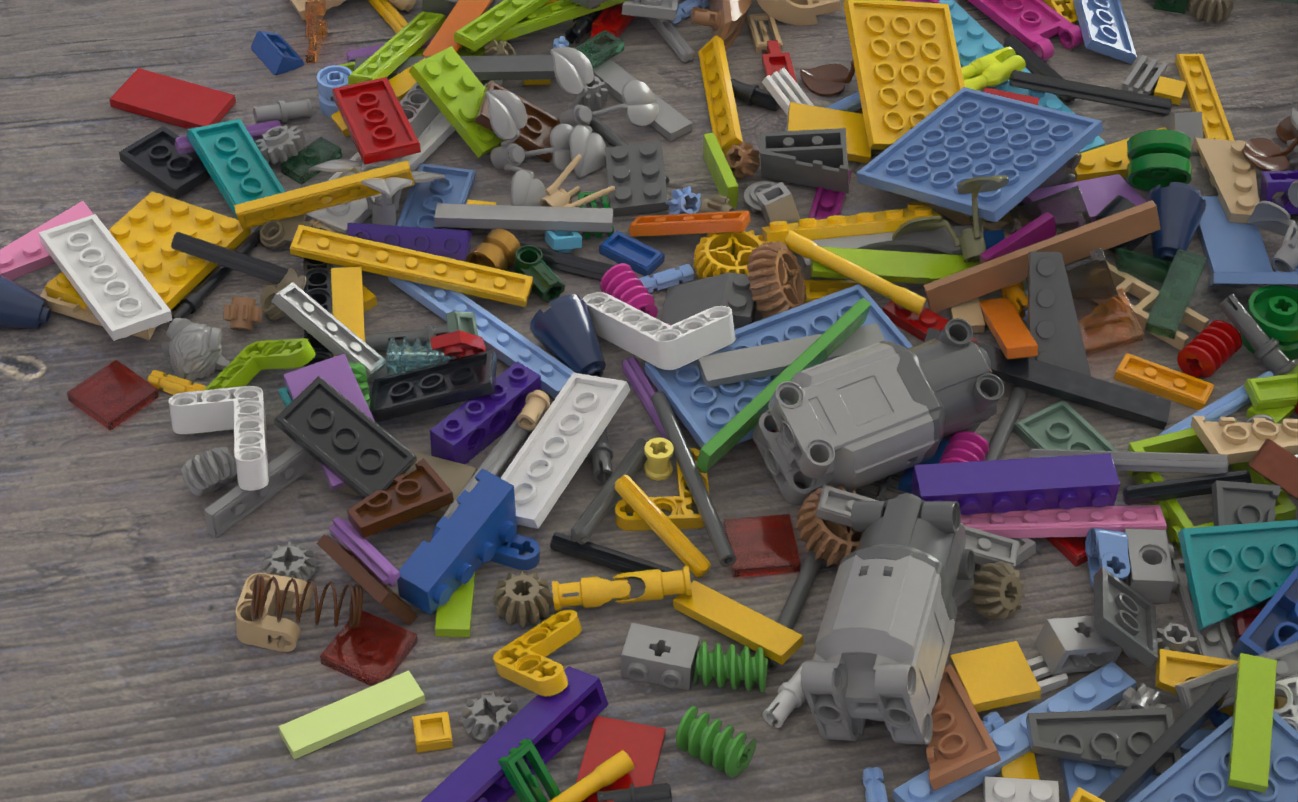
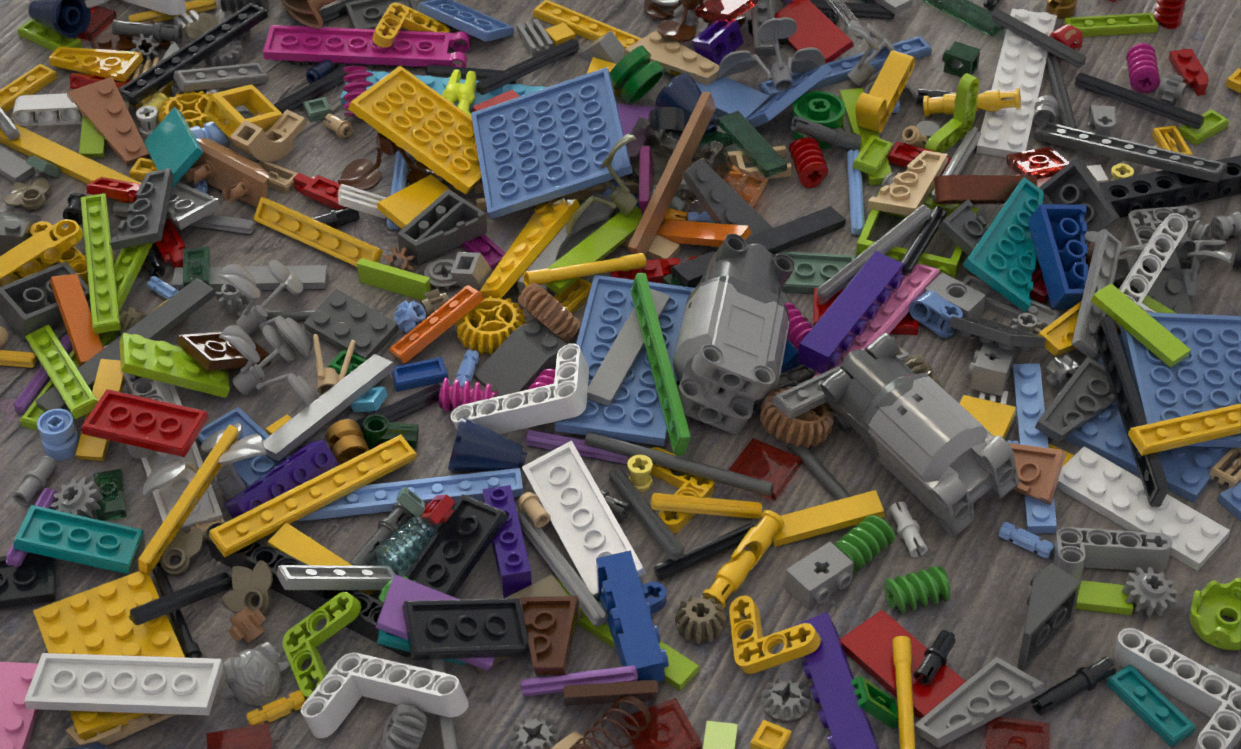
camera: 50 degrees left, 0 degrees up
(1164, 381) = (807, 200): light orange tile -> none

